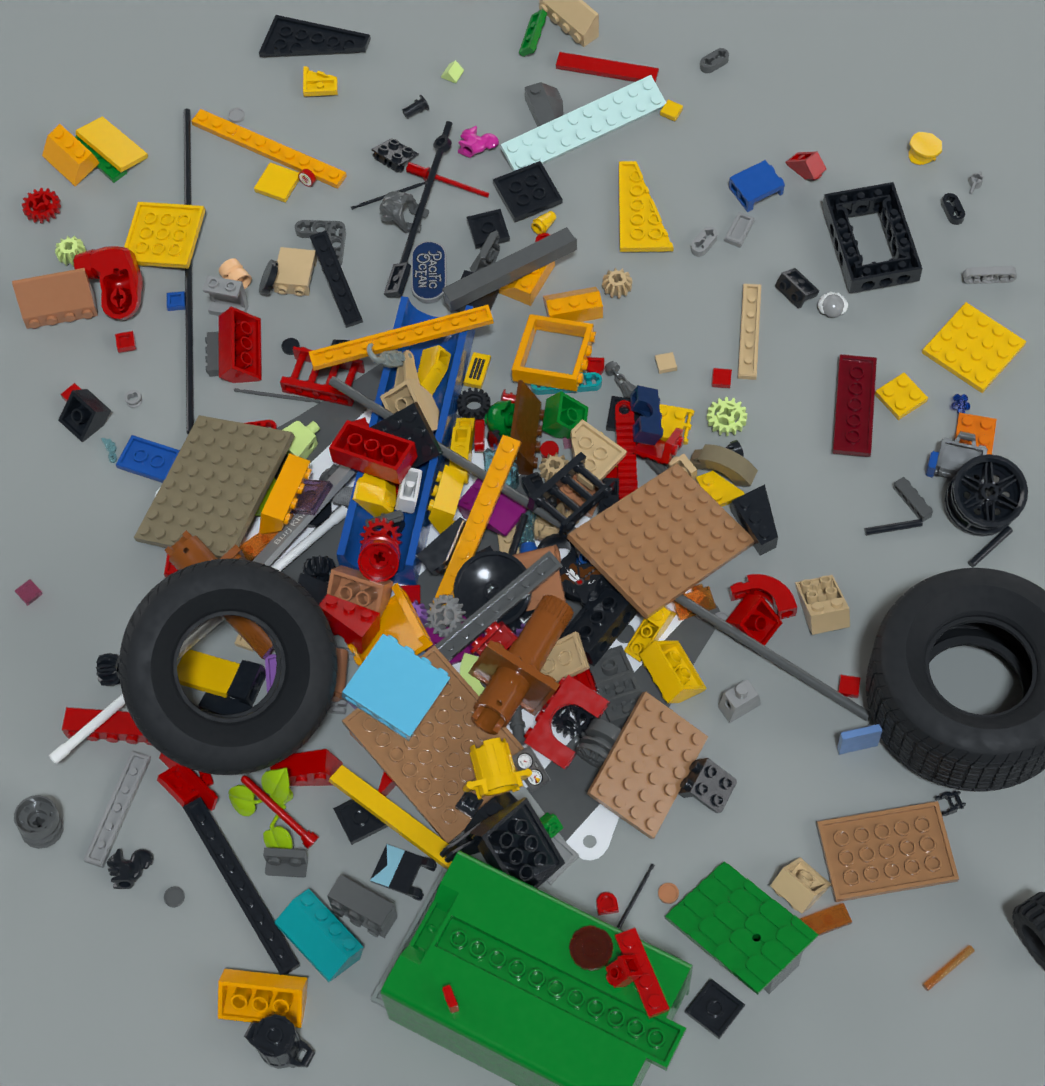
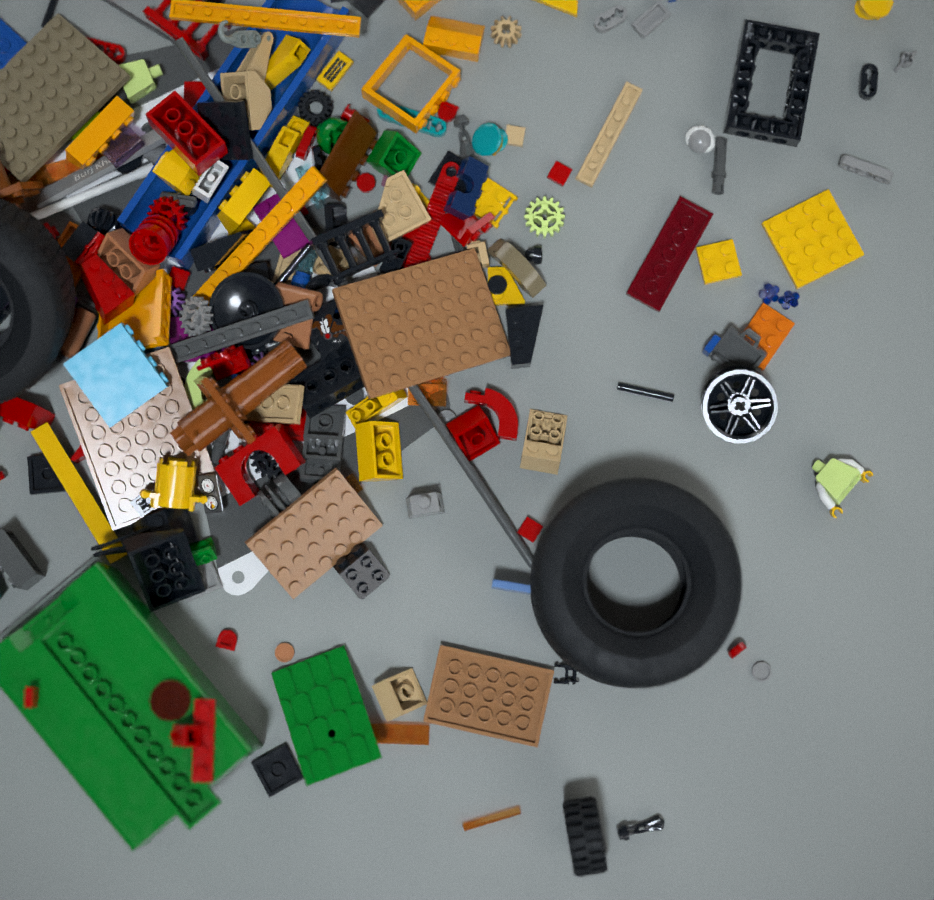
camera: 20 degrees right, 20 degrees up
(321, 589) = (90, 249): none -> red pin
(399, 869) = (62, 535): black flag -> none
(551, 465) = (353, 206): tan gear -> none
(635, 897) = (246, 650): black piece -> none
(645, 371) = (489, 139): none -> teal piece
(713, 486) = (497, 285): none -> black piece
(796, 287) = (675, 106): black bracket -> none
(864, 325) = (719, 166): none -> dark grey pin
(913, 499) = (676, 372): dark grey piece -> none
(980, 402) = (789, 299): none -> clear blue plant
(990, 546) = (719, 450): black bar -> none

